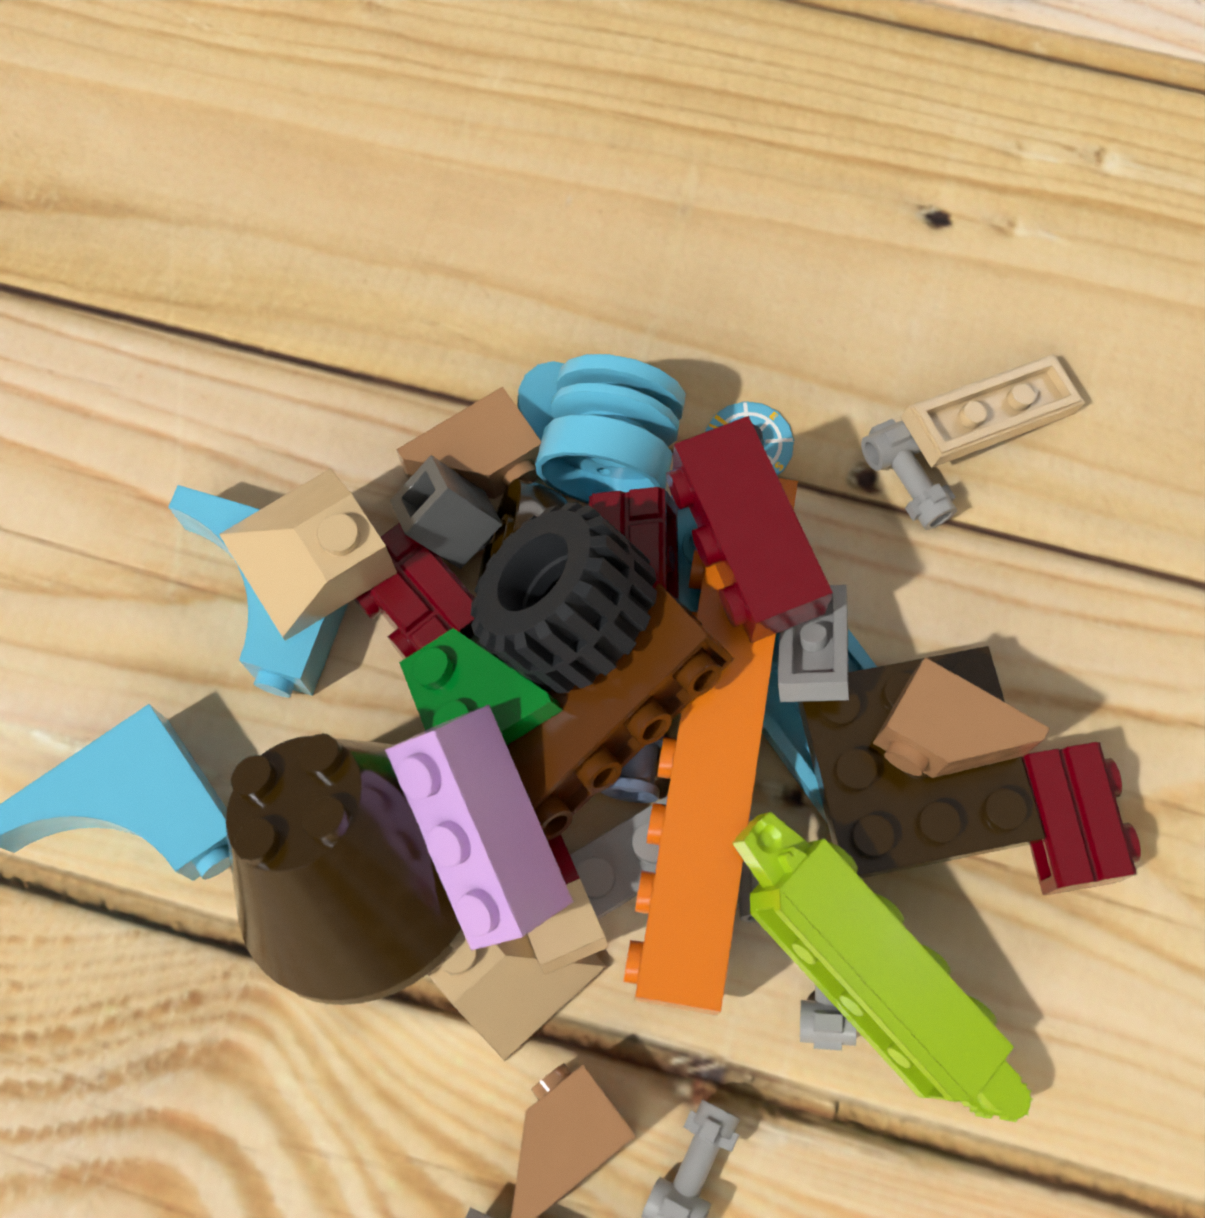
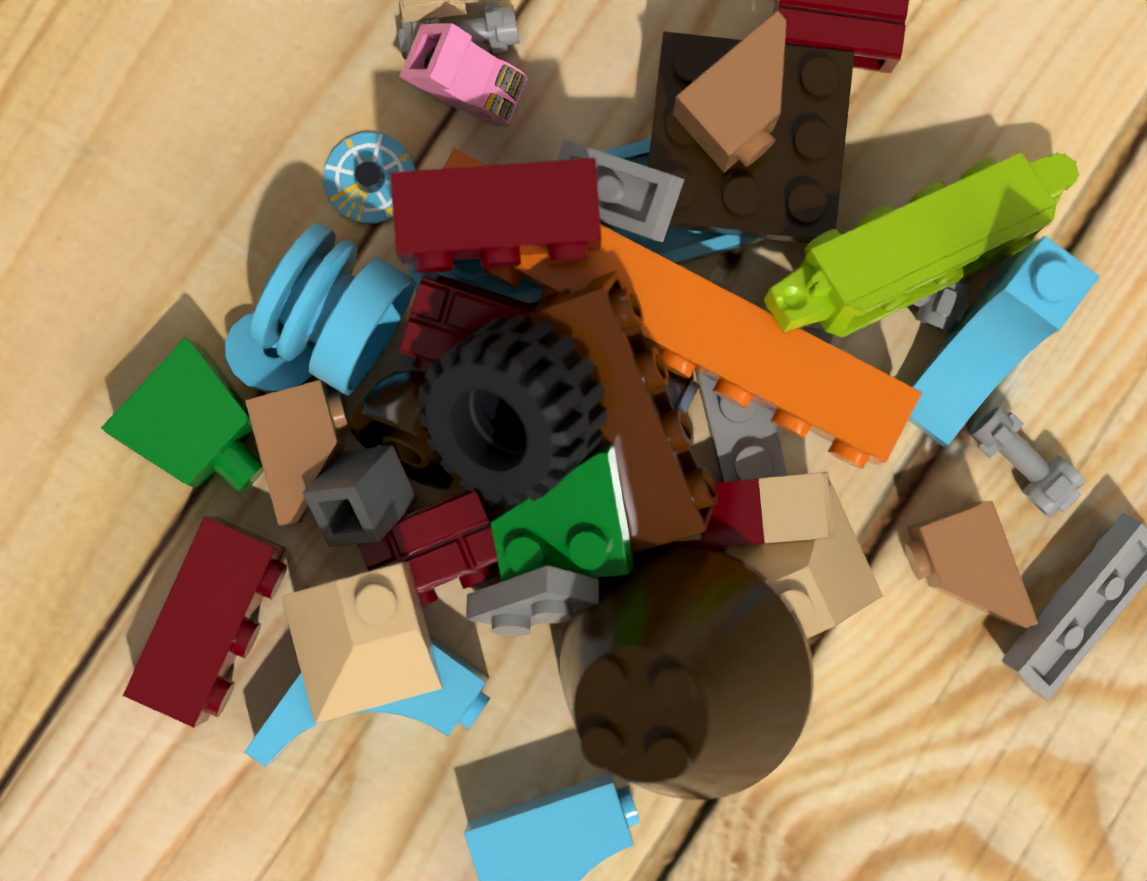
camera: 75 degrees left, 15 degrees up
(292, 424) = (207, 622): none -> dark red brick
(390, 692) = (532, 599): none -> light grey plate
(471, 350) = (189, 421): none -> green torso
(480, 828) = (703, 553): lavender brick -> none
(808, 1082) = (1008, 319): none -> medium azure arch
(873, 484) = (464, 74): none -> bright pink leg

